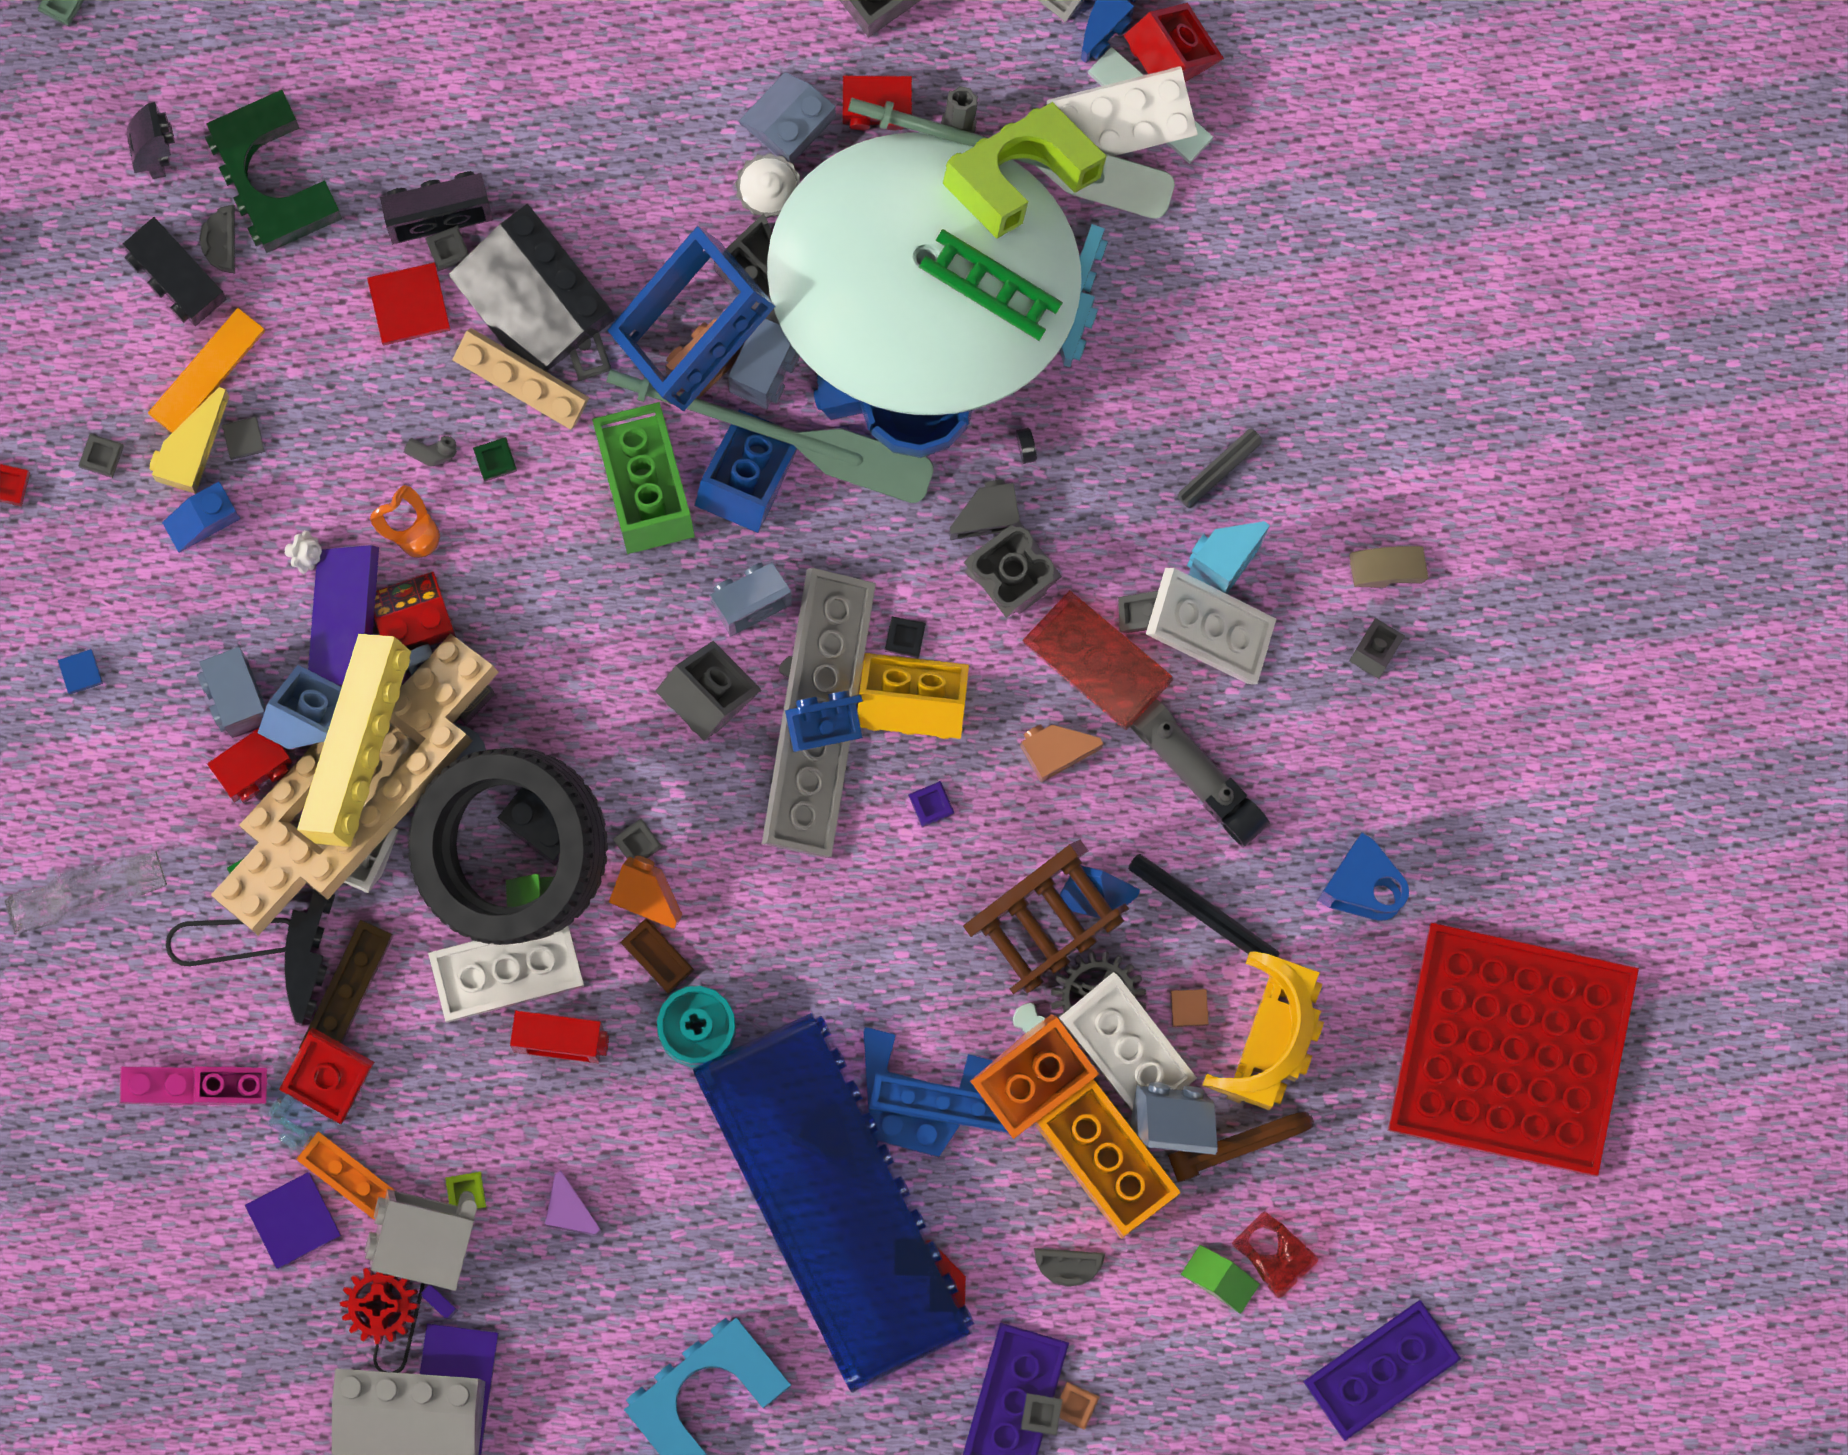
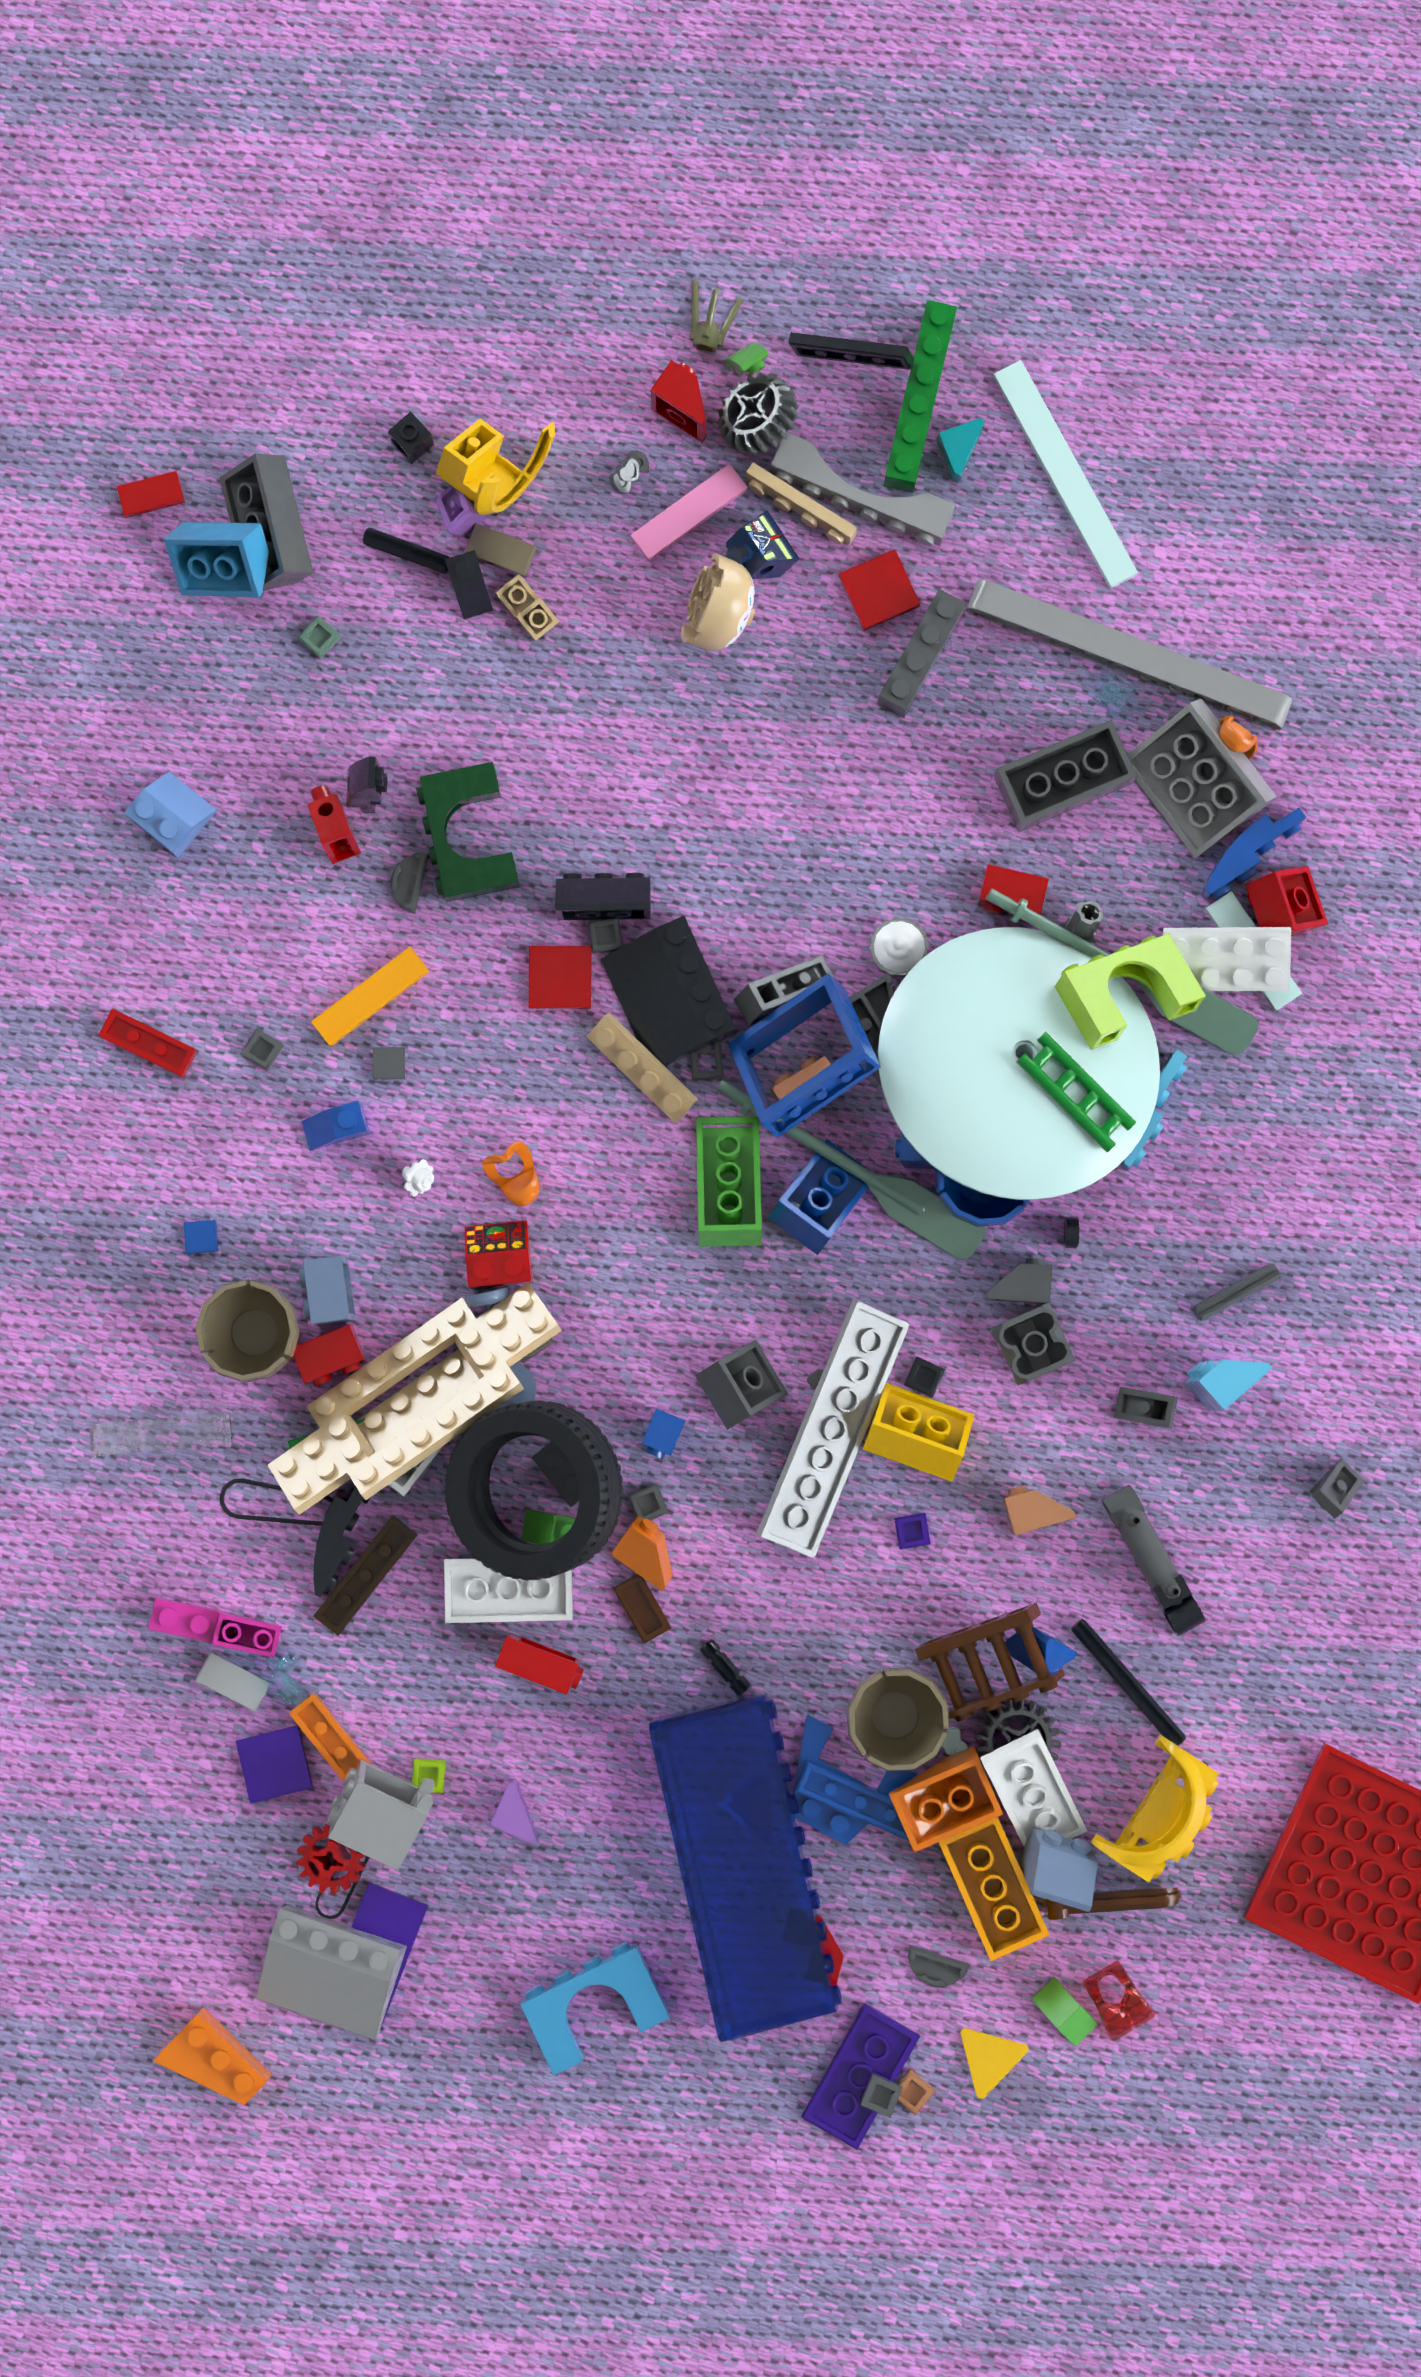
camera: 20 degrees right, 5 degrees up
(121, 195) = (332, 825): none -> red torso
(156, 751) = (247, 1330): none -> dark tan plate
(173, 272) = (360, 902): black brick -> none
(187, 449) = (337, 1063): light yellow slope -> none
(226, 1141) = (232, 1681): none -> light grey slope
(300, 710) = (387, 1323): medium blue slope -> none
(326, 1075) = (331, 1646): red tile -> none
(341, 608) = (438, 1245): dark purple tile -> none
(354, 740) = (421, 1364): light yellow brick -> none
(434, 454) = (550, 1116): dark grey arm -> none
(439, 1302) = (385, 1873): dark purple tile -> none
(495, 459) = (603, 1133): dark green tile -> none
(635, 762) = (662, 1433): none -> blue brick
(638, 265) = (773, 991): none -> dark grey slope
(691, 1006) = (657, 1700): teal wheel -> none
(750, 598) = (798, 1311): sand blue slope -> none
(762, 365) = (855, 1109): sand blue brick -> none
(762, 998) = (725, 1667): none -> black axle
(789, 116) = (931, 887): sand blue slope -> none
(824, 723) = (836, 1442): blue bracket -> none
(960, 998) = (897, 1719): none -> dark tan plate
(1098, 660) = (1089, 1440): clear red tile -> none
(1150, 1346) = (990, 2058): none -> yellow piece
(1189, 1008) = (1095, 1766): nougat tile -> none
(1211, 626) = (1196, 1437): white plate -> none
(1357, 875) = (1272, 1690): blue hose -> none
(1382, 1370) = (1187, 2126): dark purple tile -> none
(1388, 565) = (1365, 1416): dark tan slope -> none

